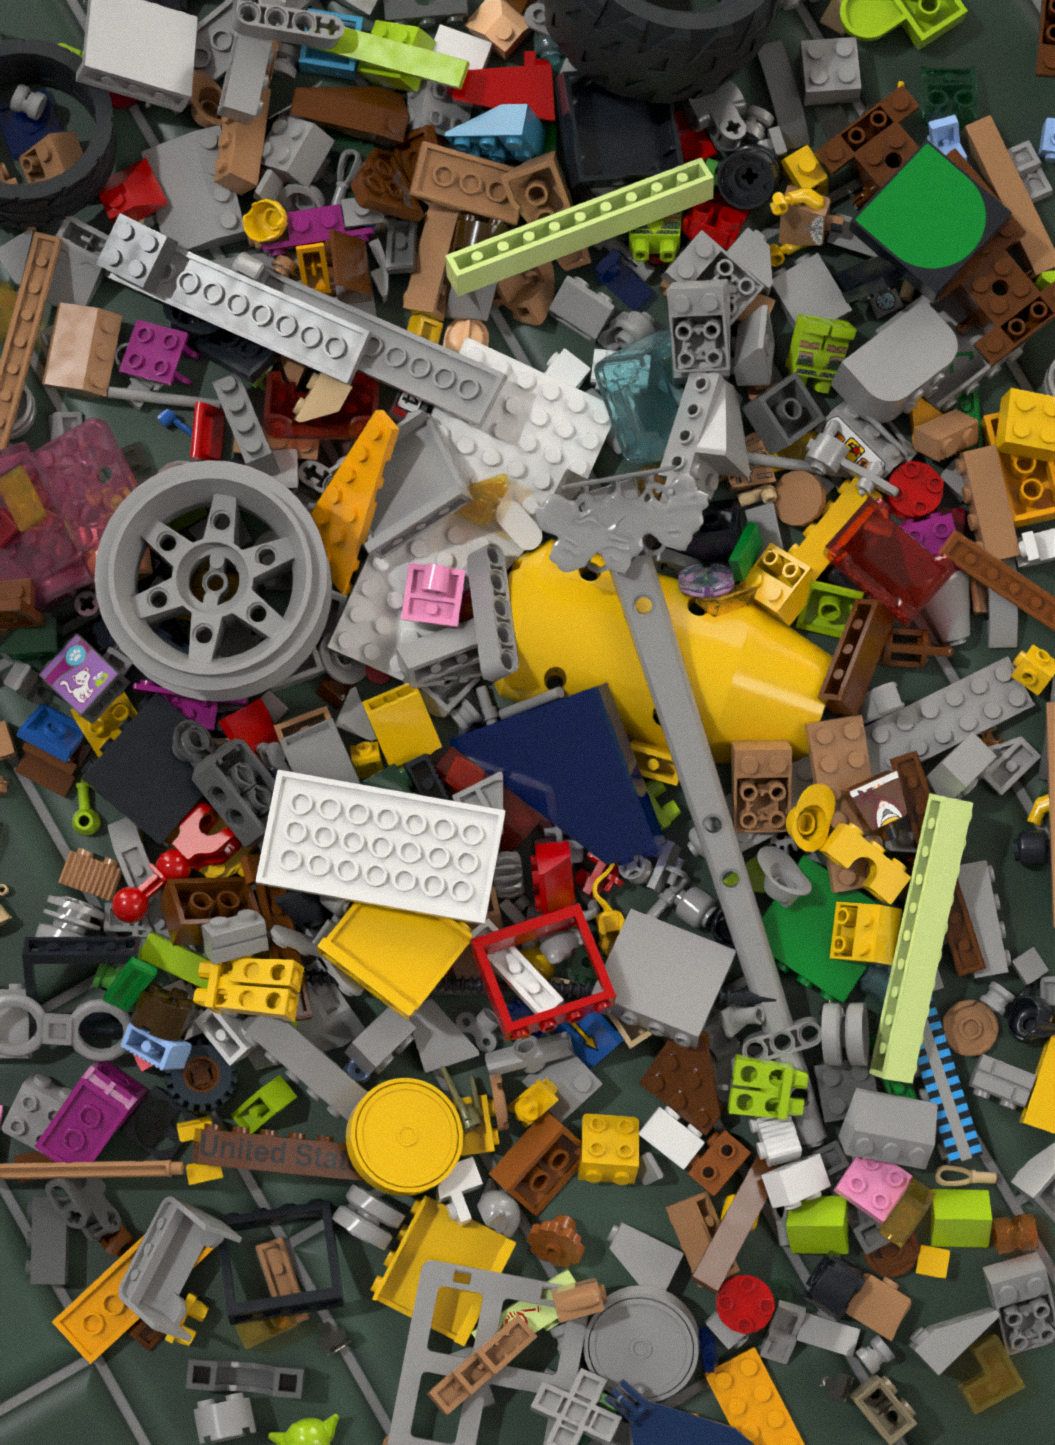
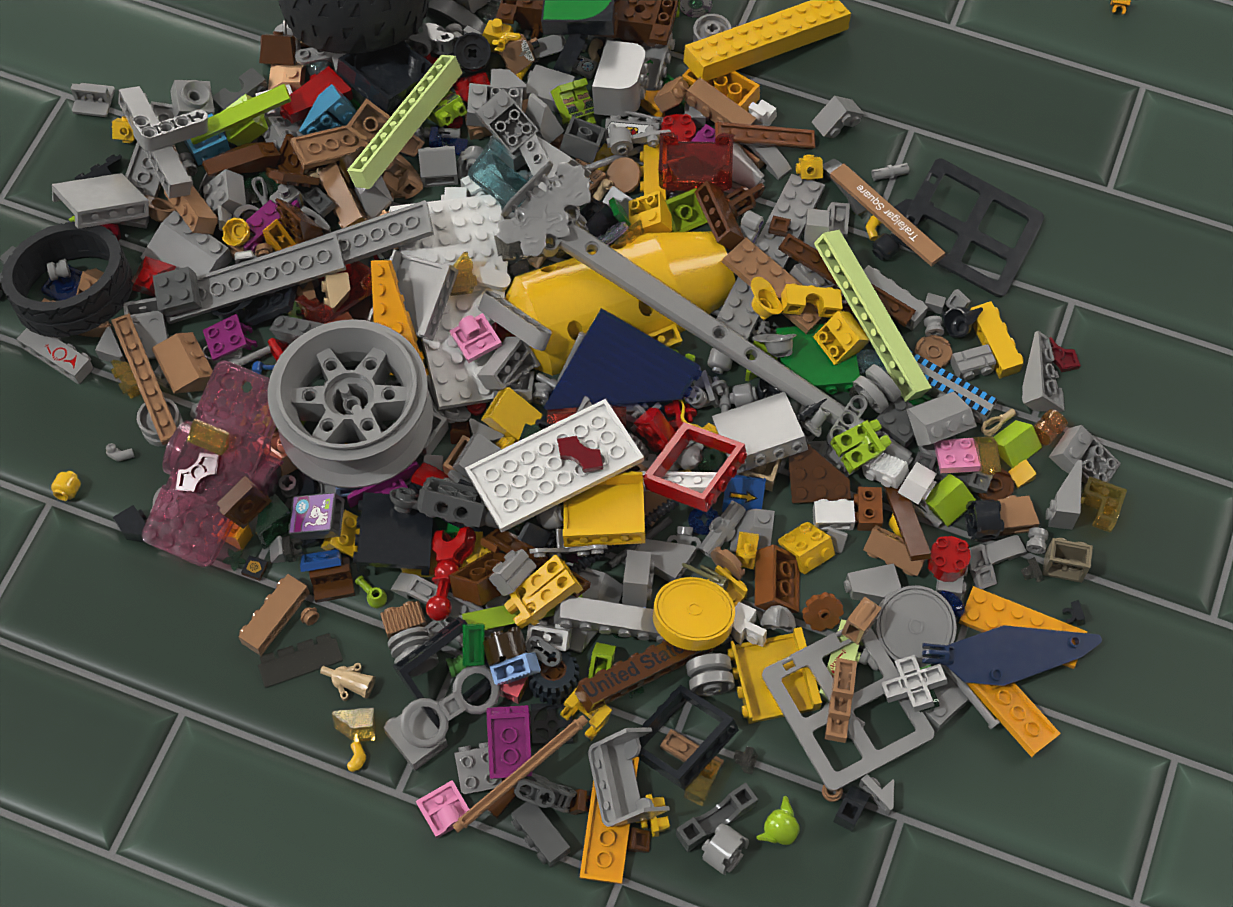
camera: 35 degrees left, 20 degrees down
(205, 1049) = (547, 647): none -> dark grey beam
(412, 849) = (573, 450): none -> dark red tile
(760, 785) = (726, 303): medium nougat slope -> none
(878, 803) = (792, 268): torso -> none
(923, 724) = (779, 226): none -> reddish brown tile

